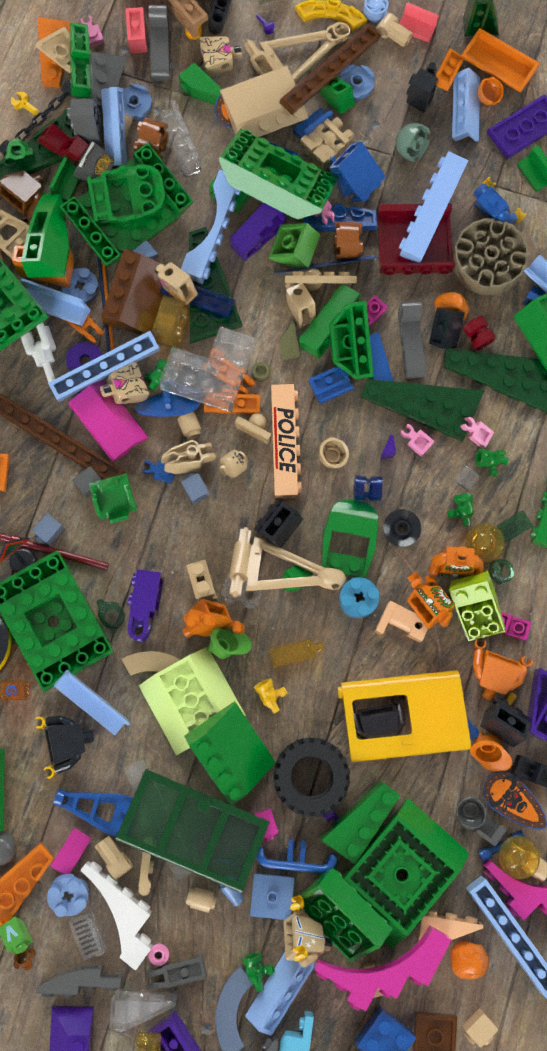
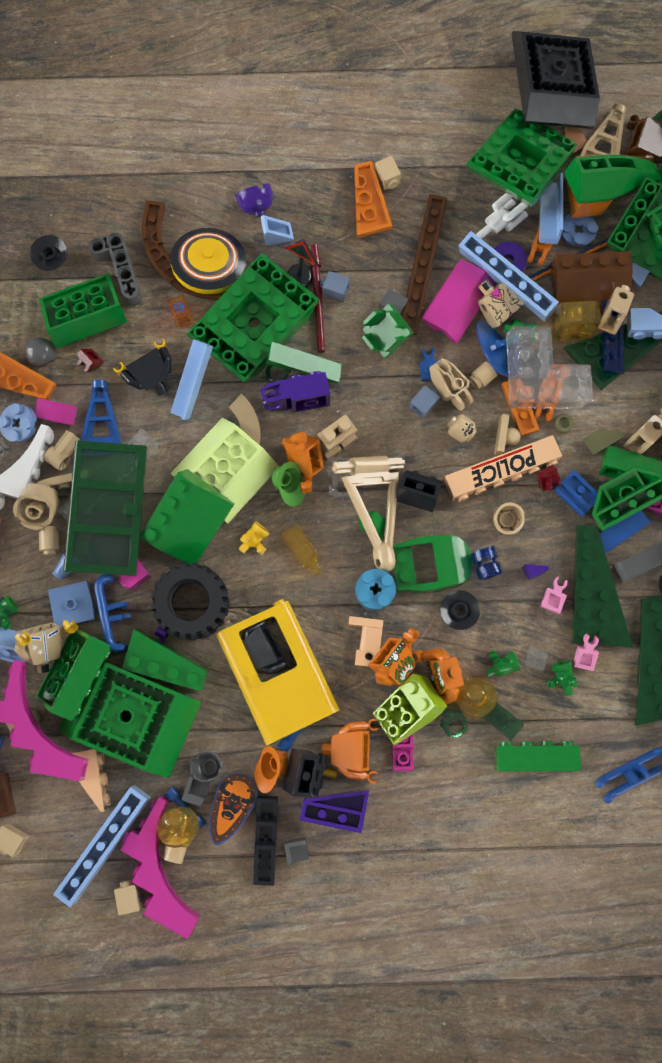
camera: 75 degrees right, 0 degrees up
(27, 799) = (90, 358): none -> dark red tile
(115, 588) = (303, 362): none -> slope
(164, 900) = (36, 506): none -> tan brick
(308, 404) = (548, 478): none -> dark red tile
(469, 960) = (68, 810): orange hair -> none

